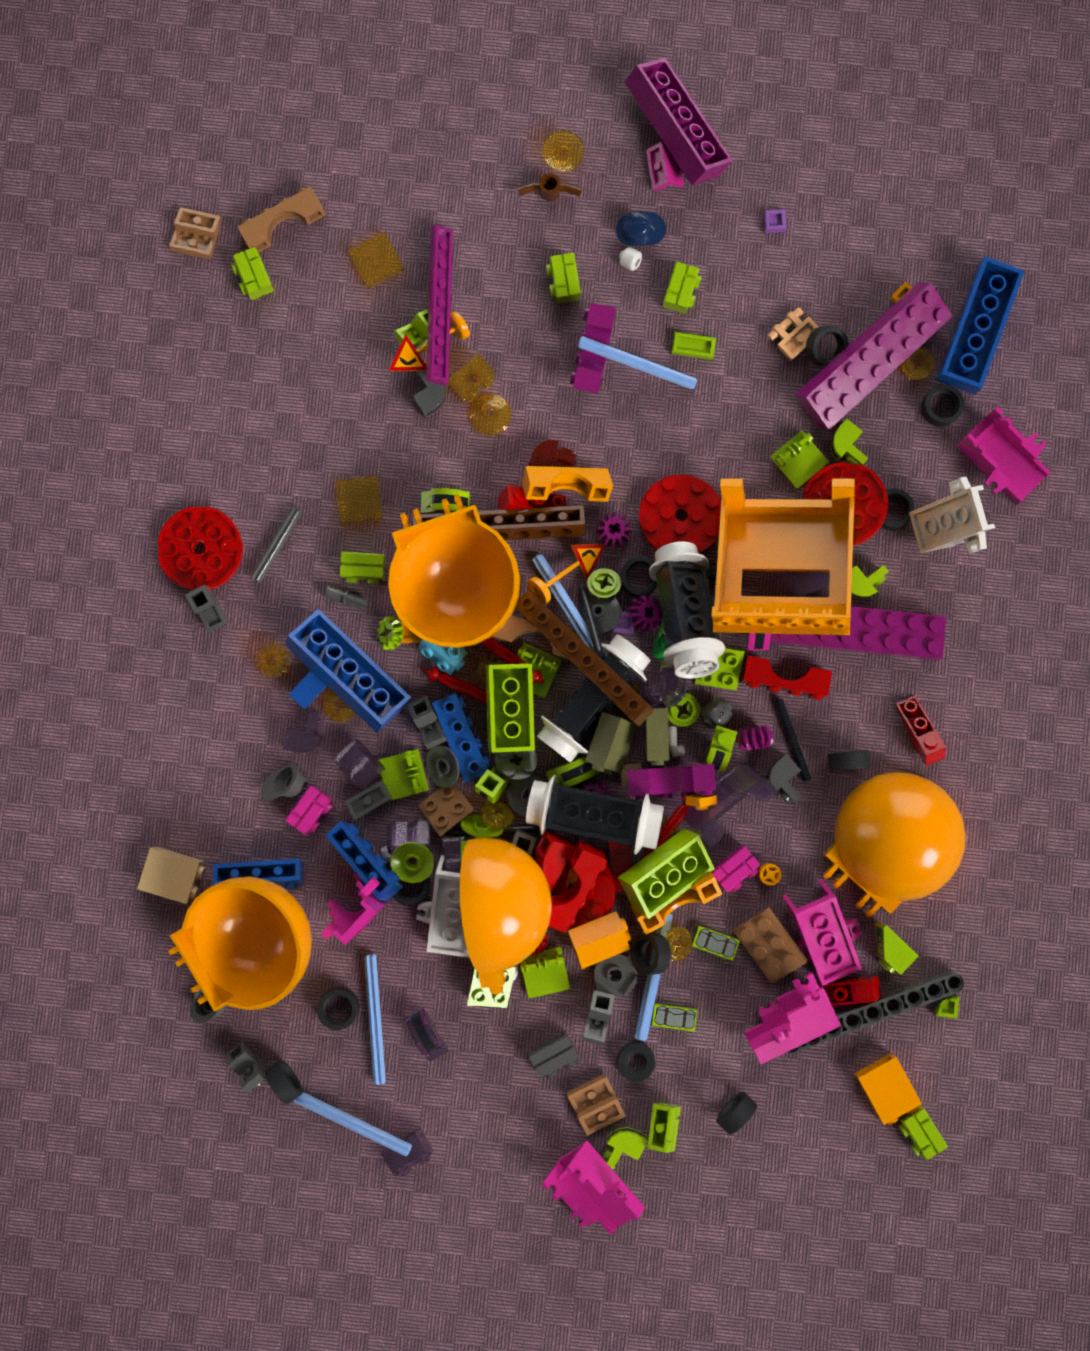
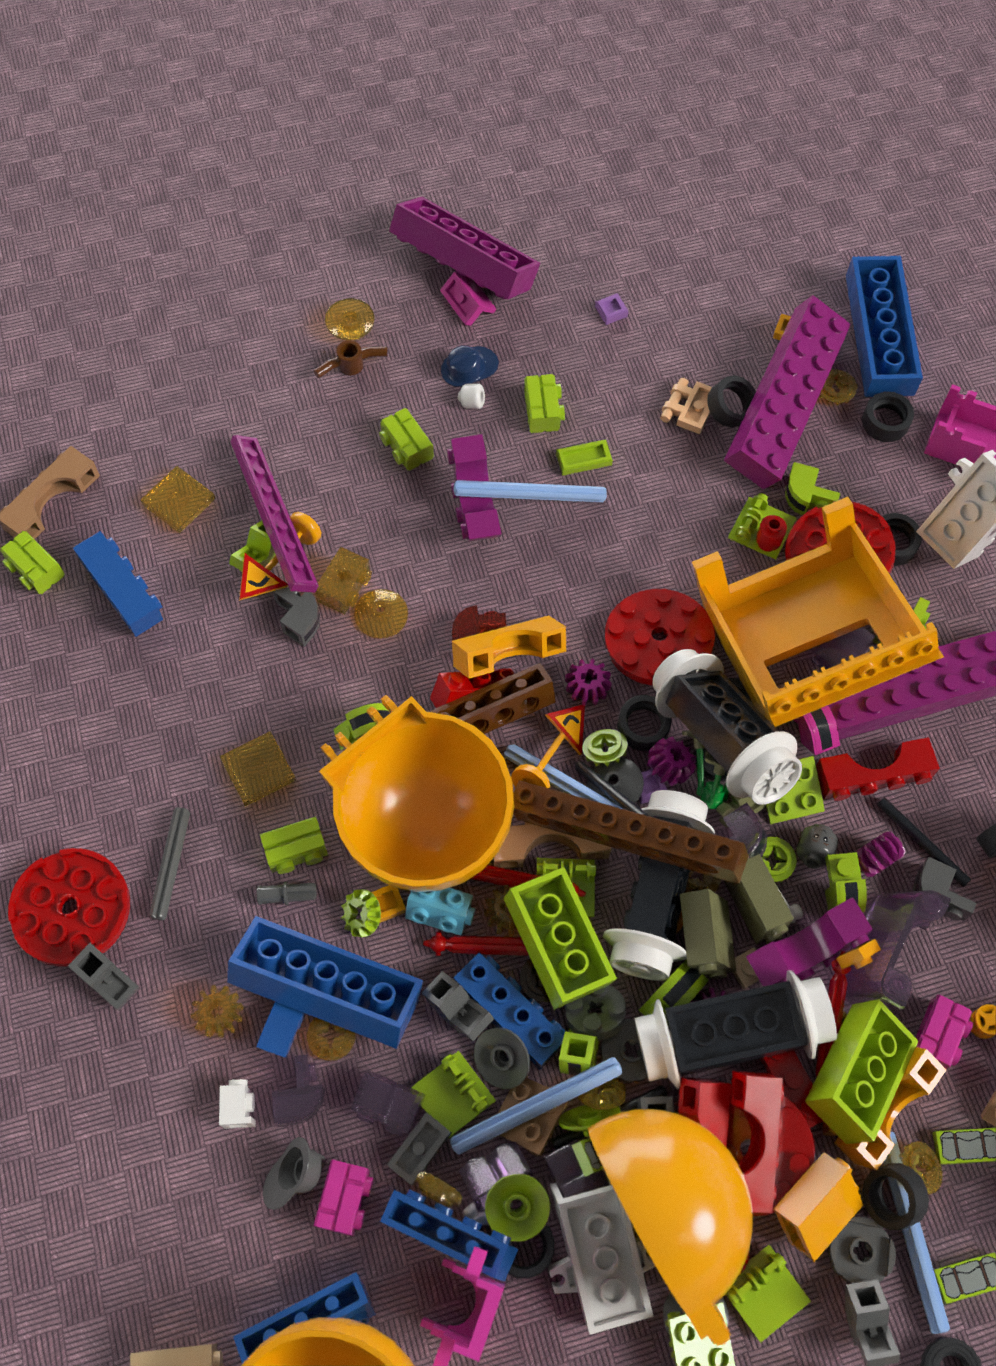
camera: 30 degrees left, 20 degrees down
(264, 725) = (236, 1104): none -> white brick
(308, 316) = (118, 583): none -> blue brick
(369, 831) = (438, 1190): none -> clear yellow gear
(451, 806) = (536, 1105): none -> light blue axle
(797, 475) = (771, 533): none -> red brick

